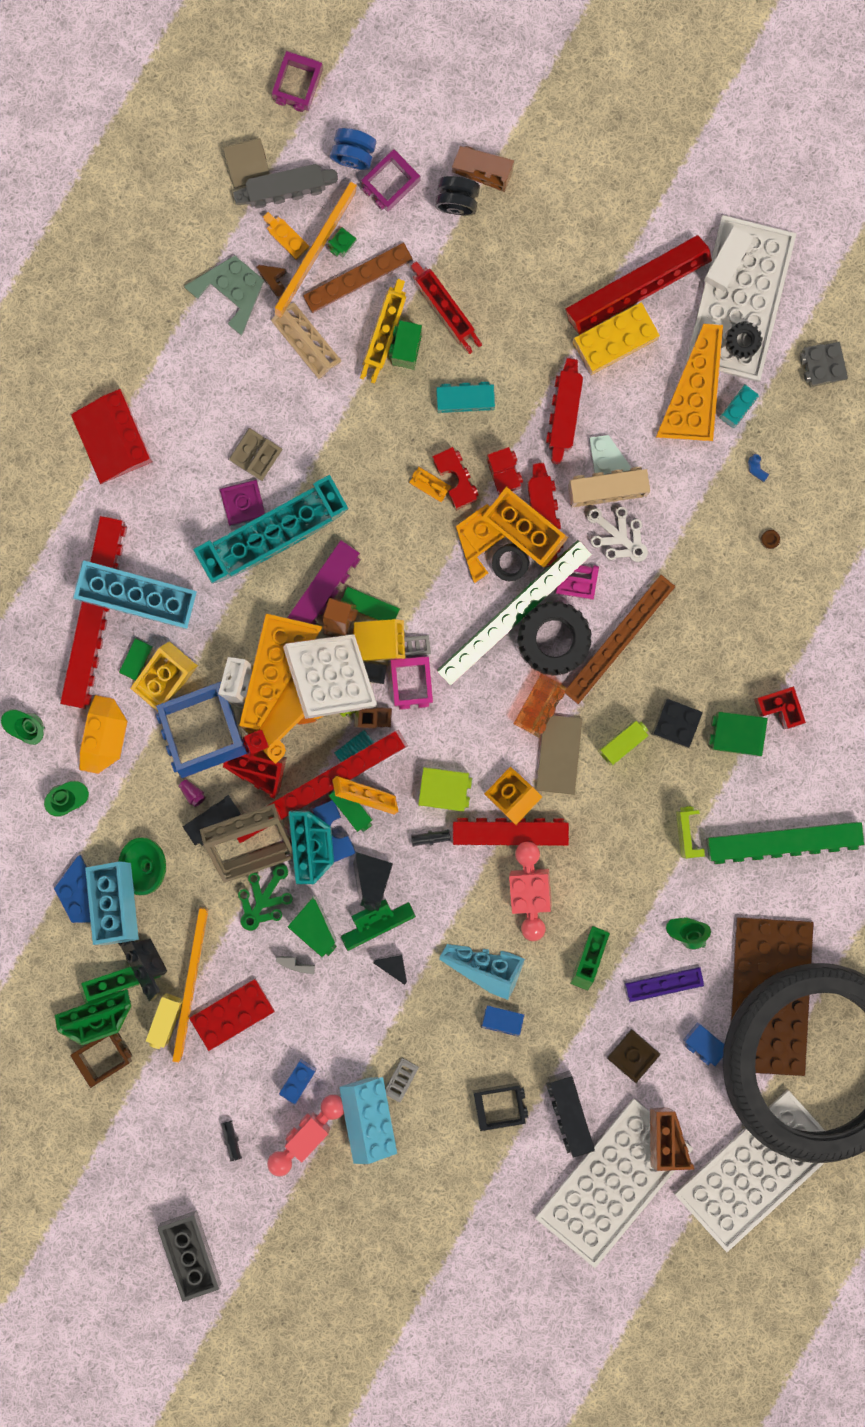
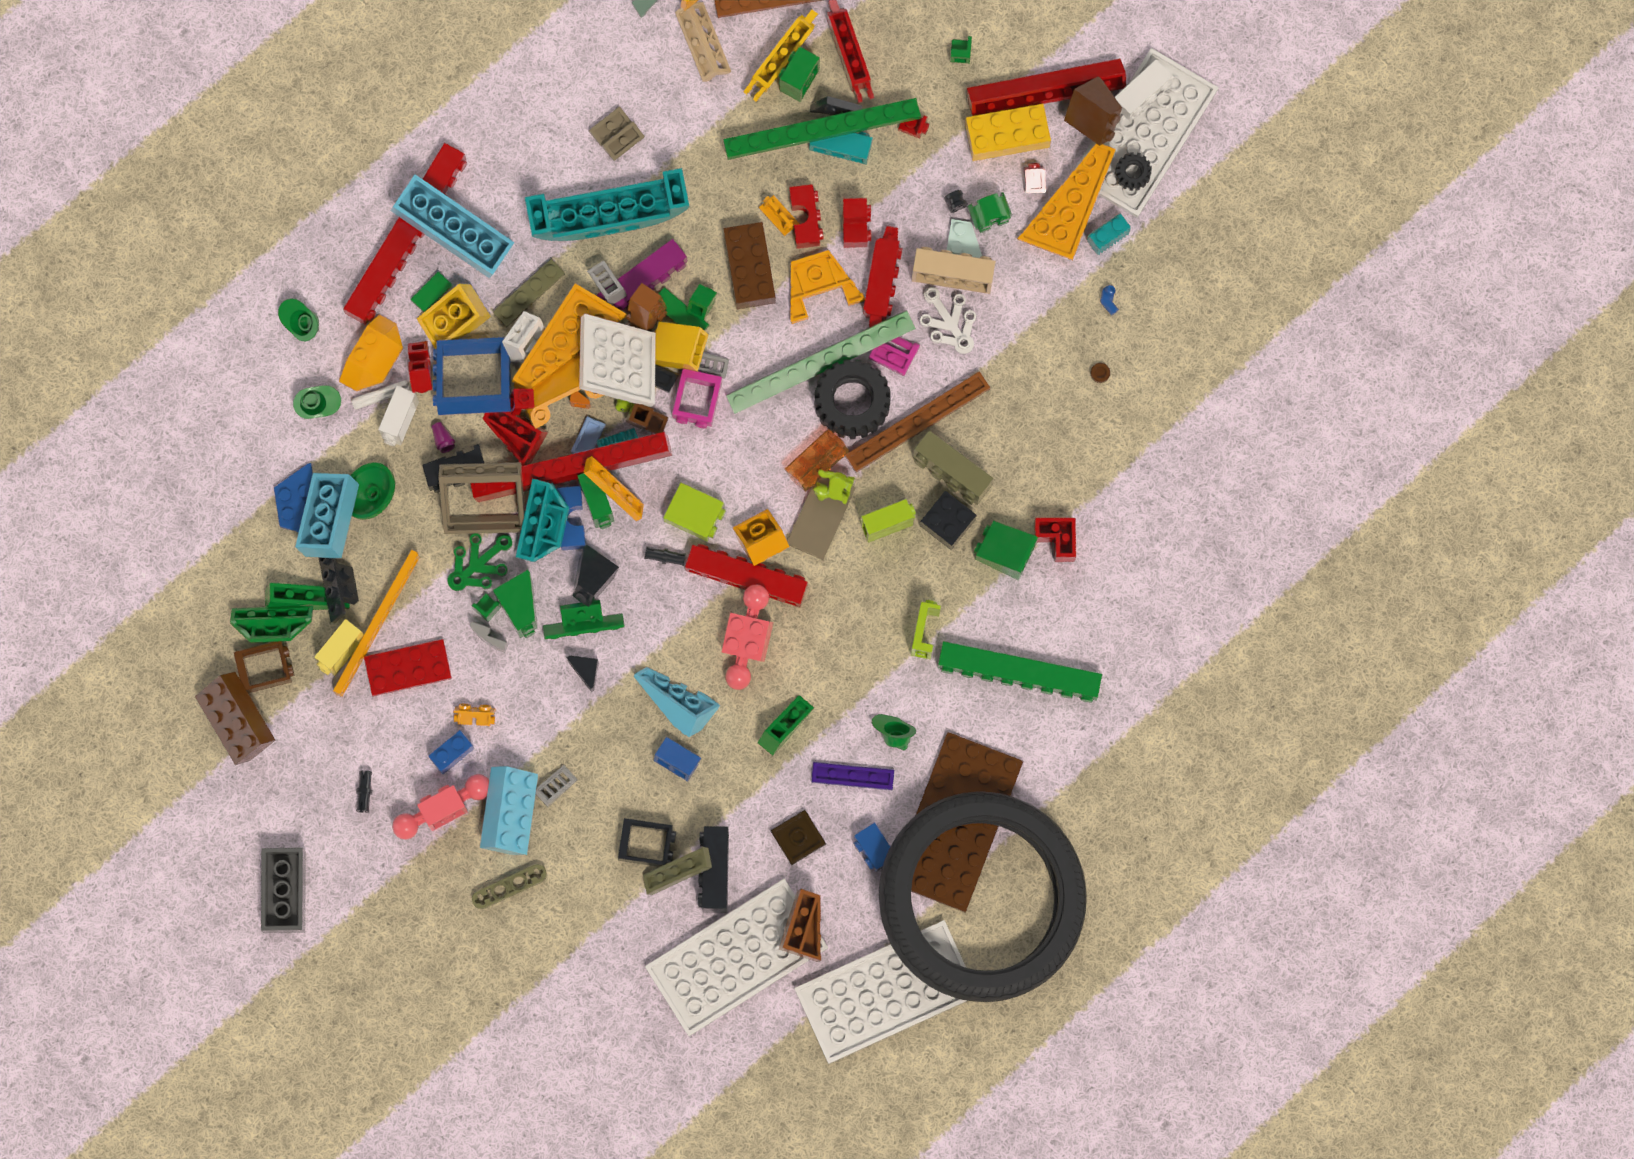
camera: 20 degrees right, 10 degrees down
(92, 1115) = (235, 718): none -> reddish brown brick
(111, 436) = (481, 73): red slope -> none
(121, 770) = (378, 395): none -> white axle
(145, 789) = (398, 416): none -> white window
(150, 737) = (419, 367): none -> red arch
(225, 631) = (529, 293): none -> olive plate
(242, 502) = (587, 174): magenta tile -> none
(284, 937) = (486, 607): none -> green panel
(306, 613) = (615, 292): none -> light grey slope
(315, 1035) = (467, 713): none -> light orange hinge
(324, 750) = (588, 435): none -> light blue tile
(386, 590) = (701, 301): none -> green brick
(388, 1182) = (508, 884): none -> olive beam
(419, 541) = (749, 265): none -> reddish brown brick
(444, 391) = (822, 128): none -> green plate
(447, 366) = (833, 106): none -> black wing
(501, 573) = (818, 311): black tyre -> none
(525, 527) = (857, 280): light orange brick -> none
(526, 358) = (915, 127): none -> red bracket
(538, 1128) = (677, 871): none -> olive plate
(547, 273) = (961, 51): none -> green panel
(566, 410) = (936, 185): red hinge -> none
(568, 727) = (835, 490): none -> lime animal
(588, 419) = (955, 201): none -> black wheel
(624, 420) = (990, 211): none -> green brick
(653, 374) = (1034, 178): none -> bracket
(667, 674) = (952, 468): none -> olive brick
(693, 295) = (1094, 111): none -> reddish brown slope
(823, 364) = (1207, 220): dark grey plate -> none

